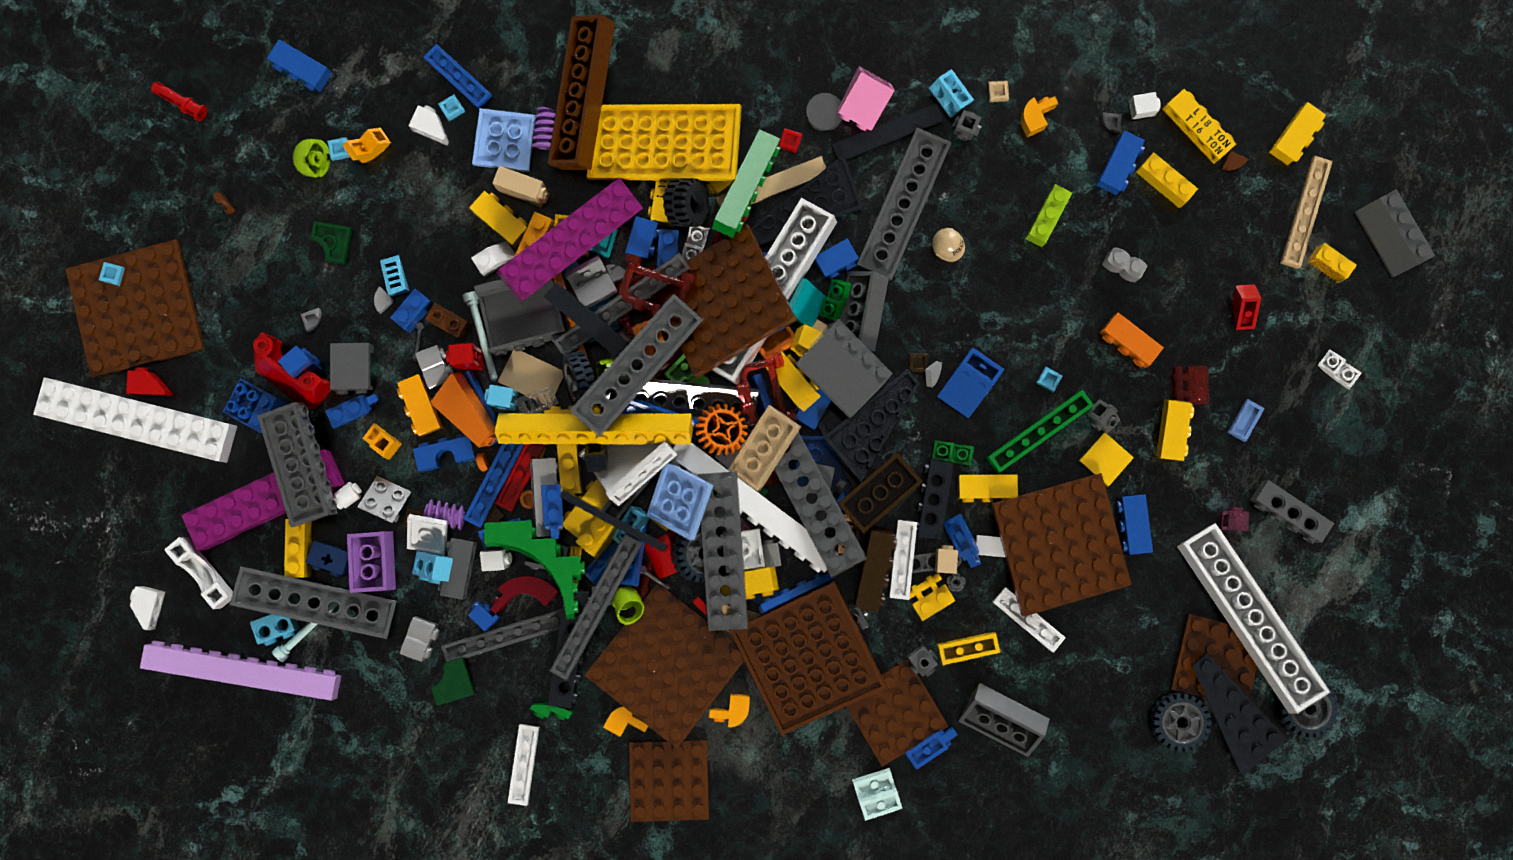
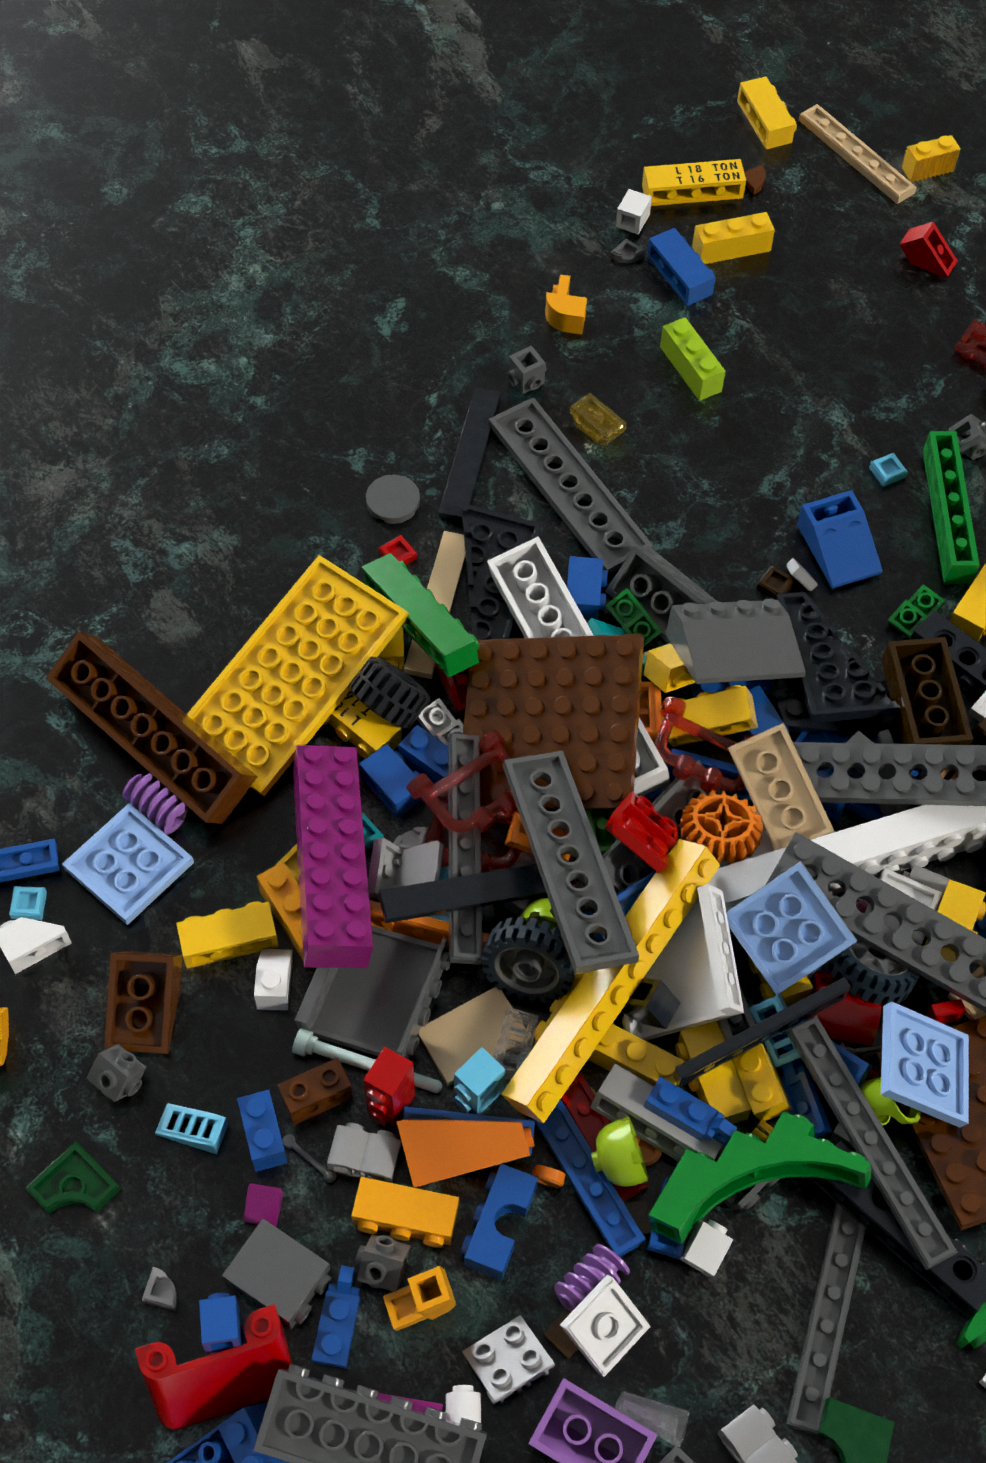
camera: 60 degrees left, 25 degrees down
(380, 337) = (263, 1203): none -> magenta slope
(382, 300) = (213, 1167): light grey tile -> none
(387, 412) = (382, 1262): none -> dark grey brick
(392, 221) = (116, 1073): none -> dark grey brick
(401, 588) = (660, 1418): none -> clear slope
(432, 567) = (659, 1343): medium azure brick -> none
(438, 203) = (142, 1000): none -> reddish brown slope
(463, 557) = (684, 1316): dark grey brick -> none
(483, 615) = (780, 1324): blue brick -> none
(511, 490) = (619, 1154): none -> lime cylinder
(520, 186) = (209, 874): tan brick -> none
(532, 585) = (784, 1217): dark red arch -> none
(653, 611) = (925, 1064): none -> light blue plate
(680, 393) = (643, 830): none -> red brick
(865, 99) = (414, 442): bright pink slope -> none
(948, 244) = (652, 467): tan helmet -> none
(951, 93) = (477, 357): medium azure brick -> none
(965, 190) = (597, 420): none -> clear yellow slope
(998, 91) = (508, 328): tan tile -> none
(1128, 267) = (802, 324): light grey brick -> none
(1131, 340) = (896, 366): orange brick -> none
(1394, 233) = (935, 96): dark grey slope -> none

